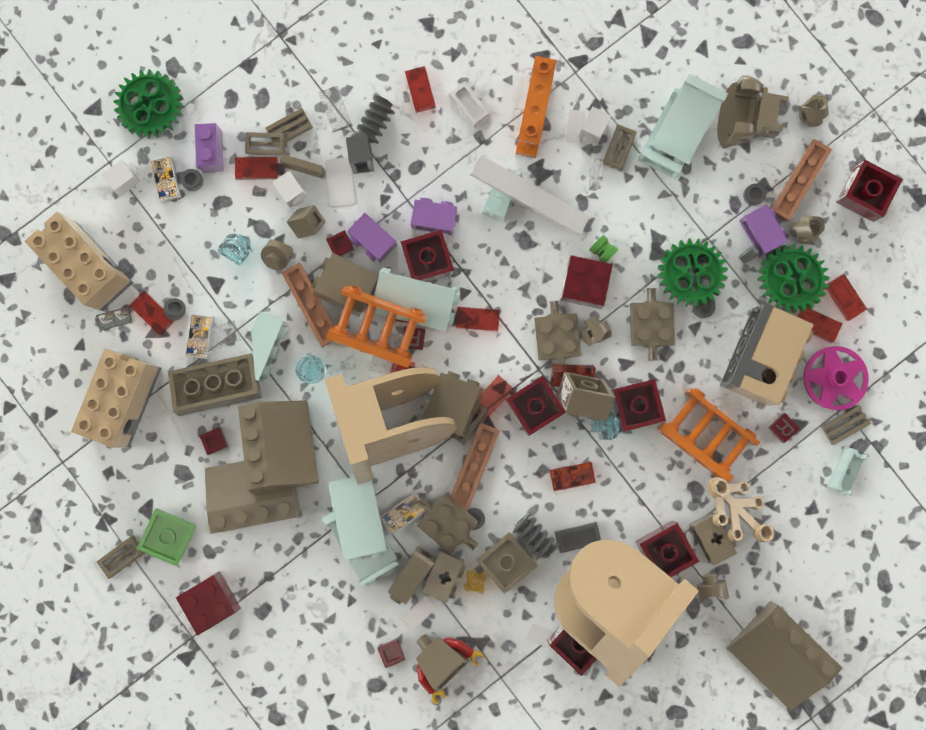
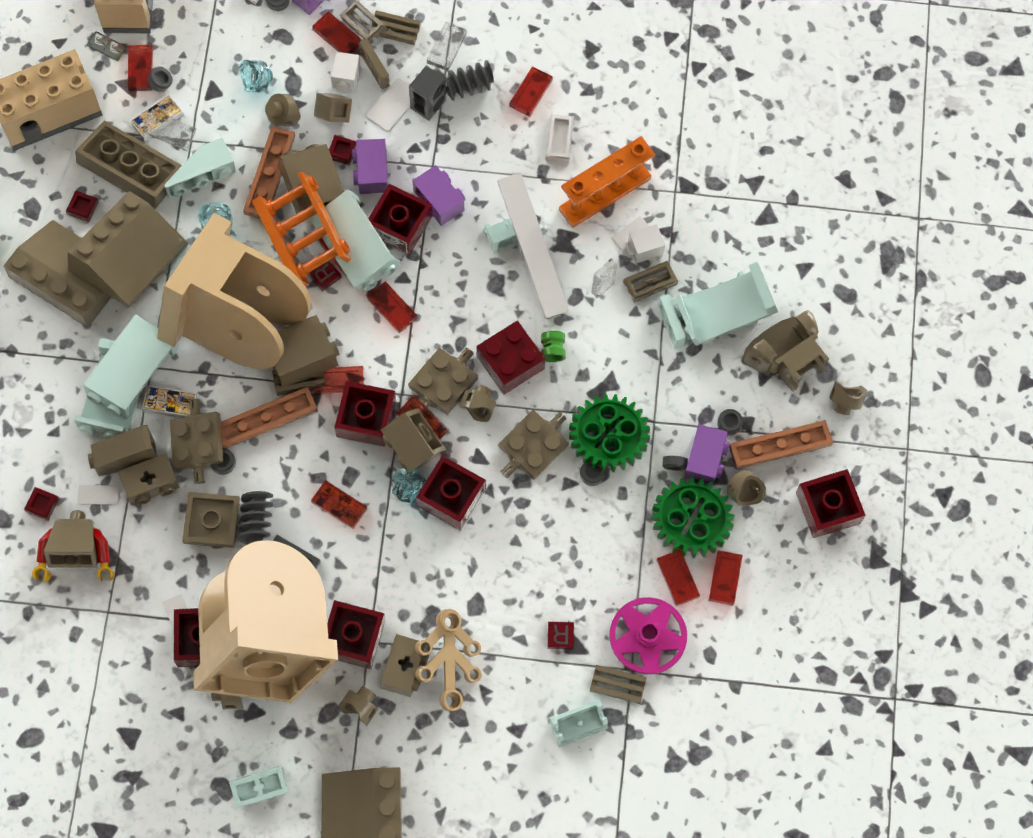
camera: 40 degrees right, 15 degrees down
(470, 585) = (165, 506): clear yellow plate -> none
(688, 442) = (467, 591): orange fence -> none
(701, 694) = (259, 786): none -> light aqua hinge
(768, 346) = (609, 546): tan piece -> none

